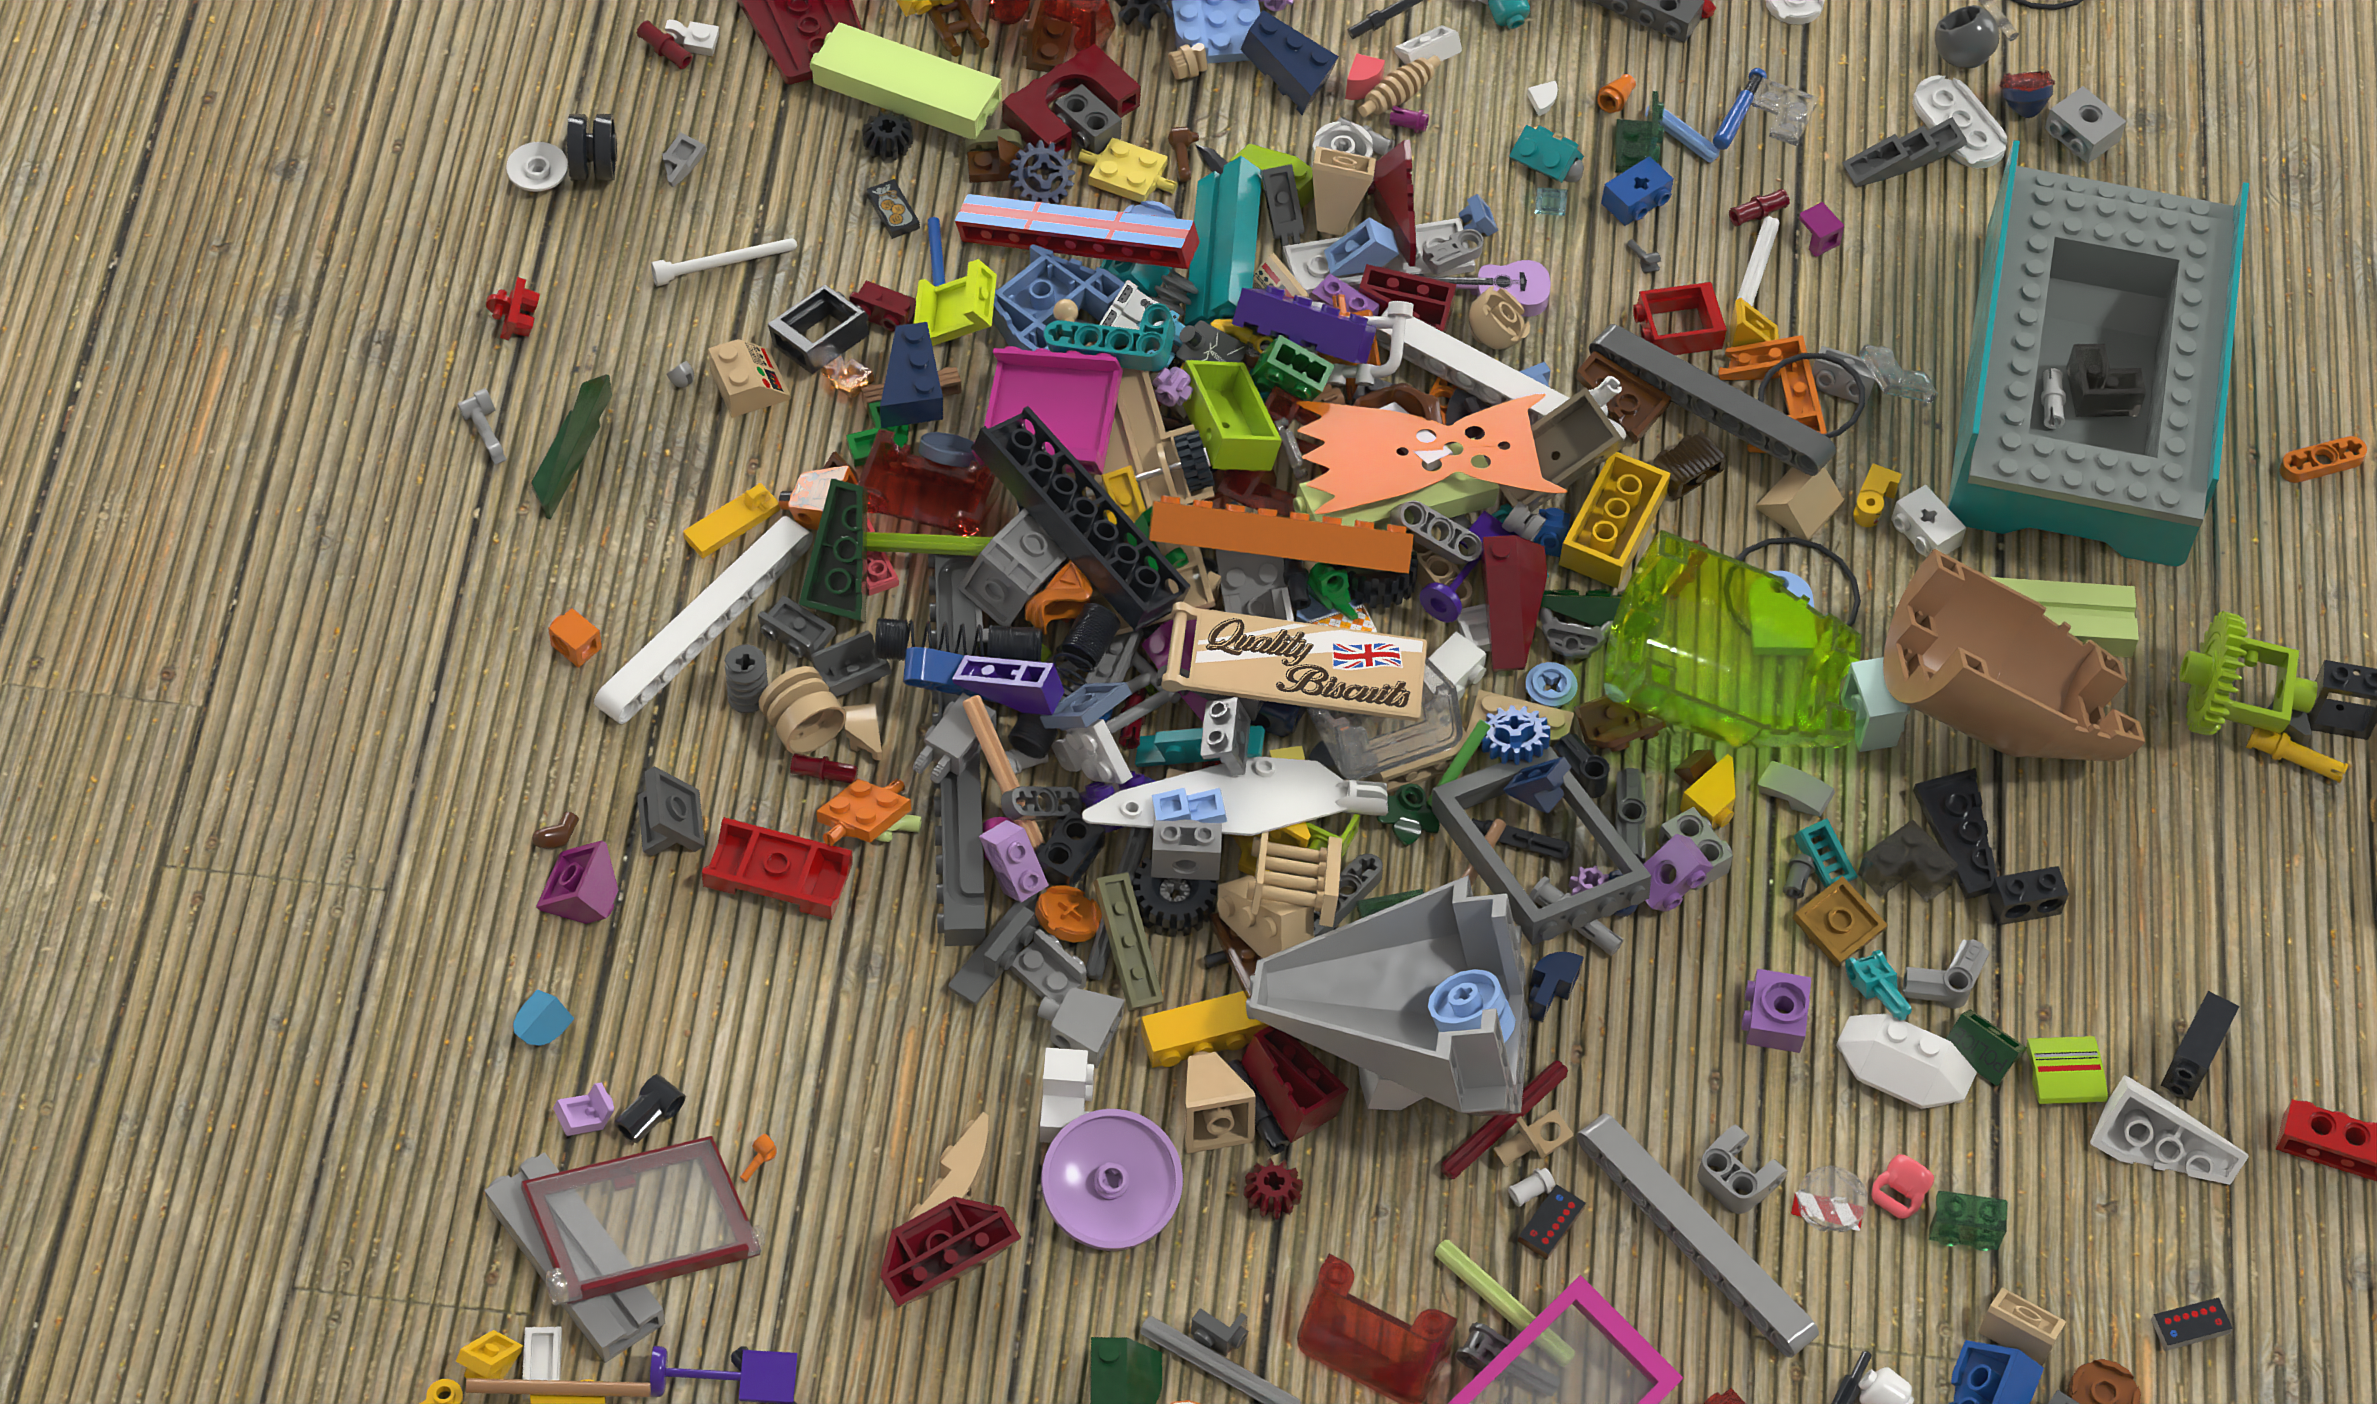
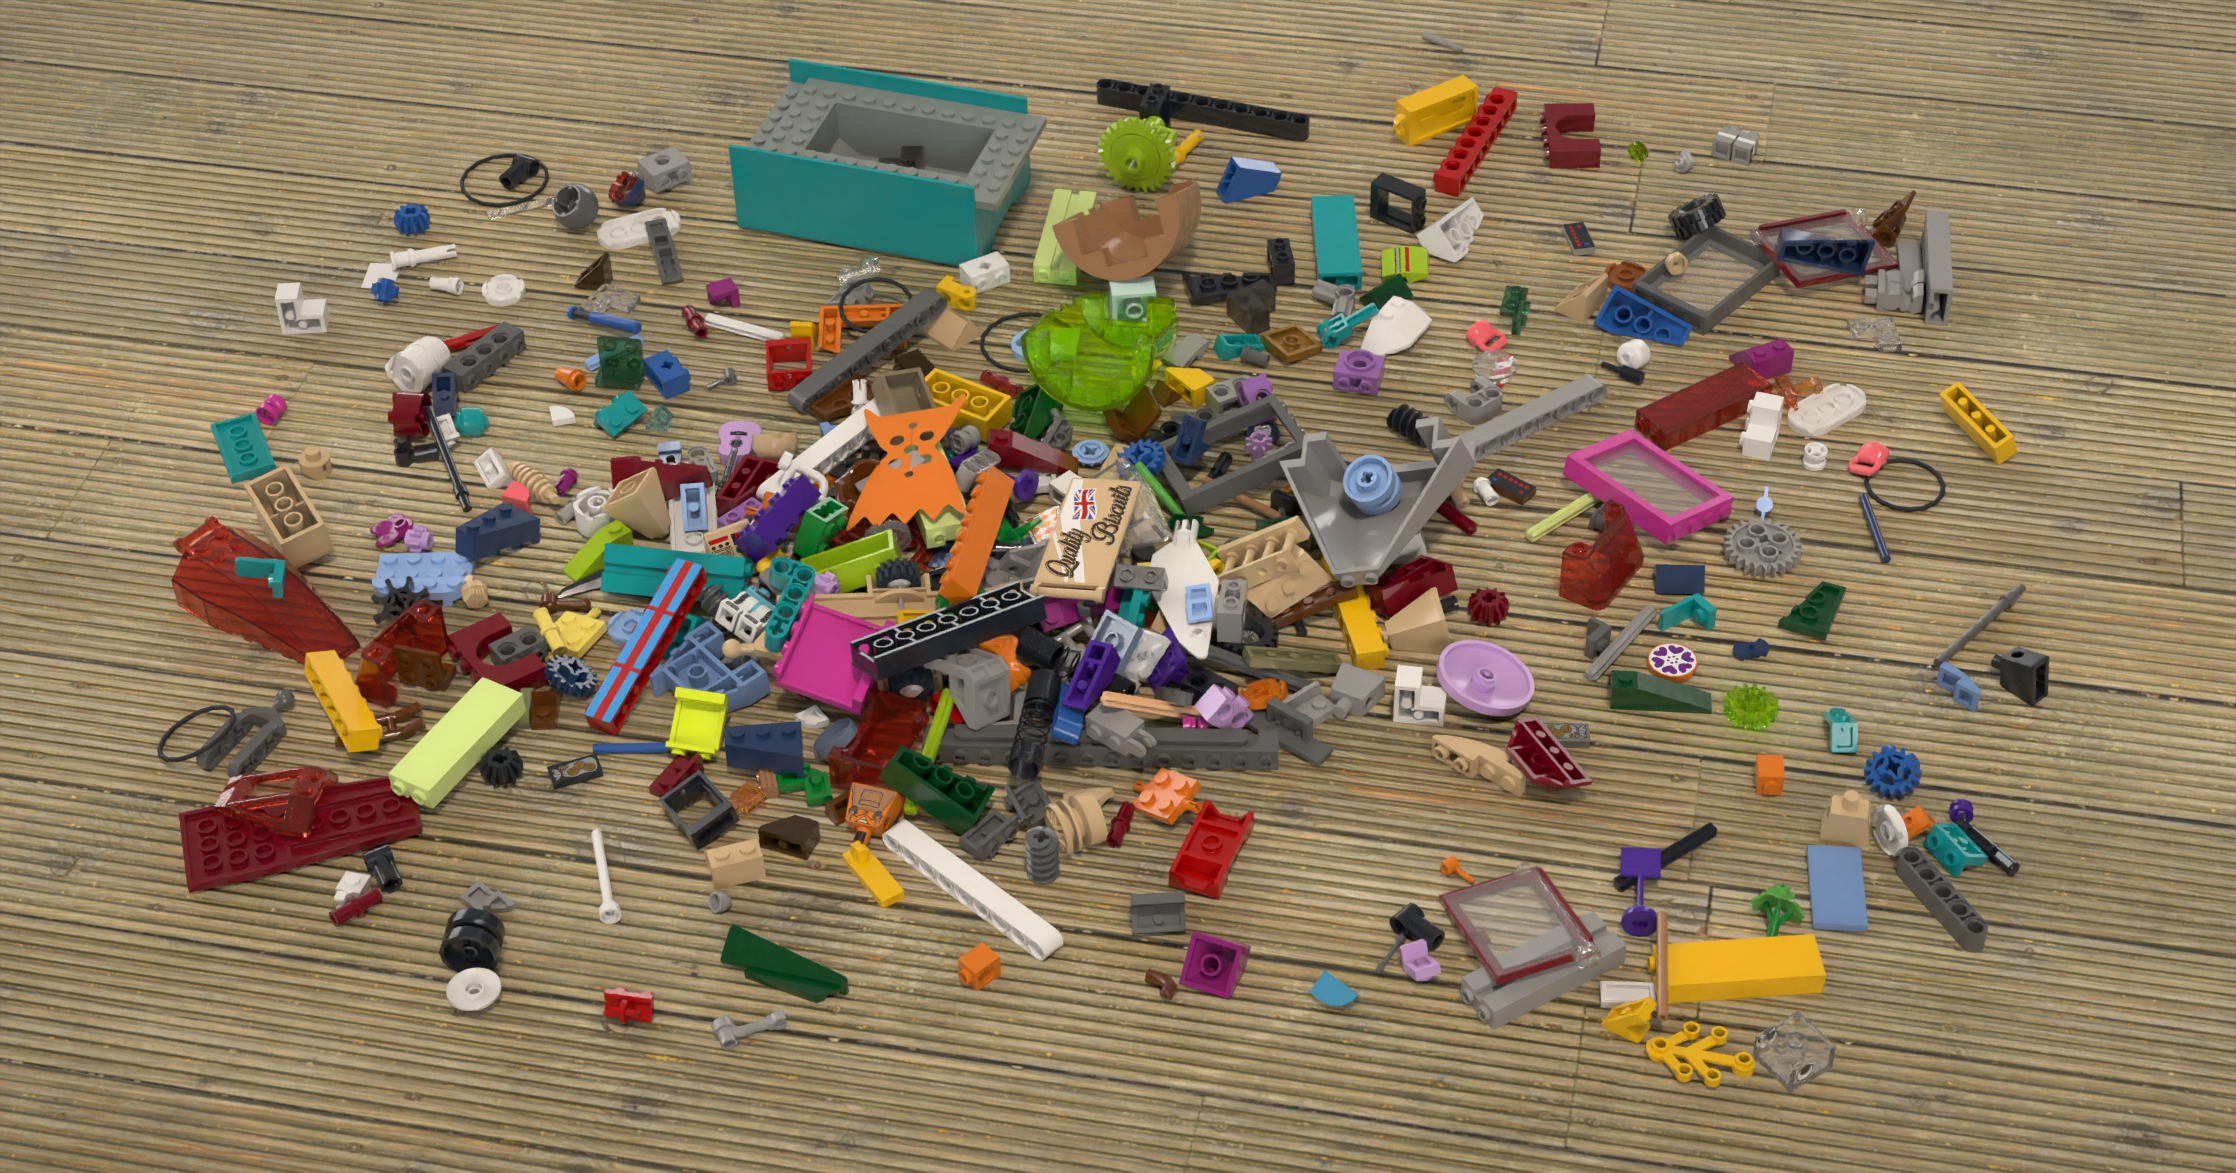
camera: 80 degrees left, 15 degrees down
(587, 1072) = (1400, 939): none -> dark grey hinge
(729, 53) = (383, 867): none -> black piece
(785, 430) = (790, 836): none -> dark brown slope
(1025, 1290) = (1571, 733): none -> tile
(1109, 139) = (550, 631): none -> light yellow pin
(1283, 204) = (628, 535): dark grey hinge -> none
(1661, 1084) = (1404, 421): none -> black piece
(1835, 90) = (596, 274): none -> dark brown slope
(2098, 970) = (1336, 240): none -> teal brick
(2230, 843) = (1247, 179): none -> blue slope

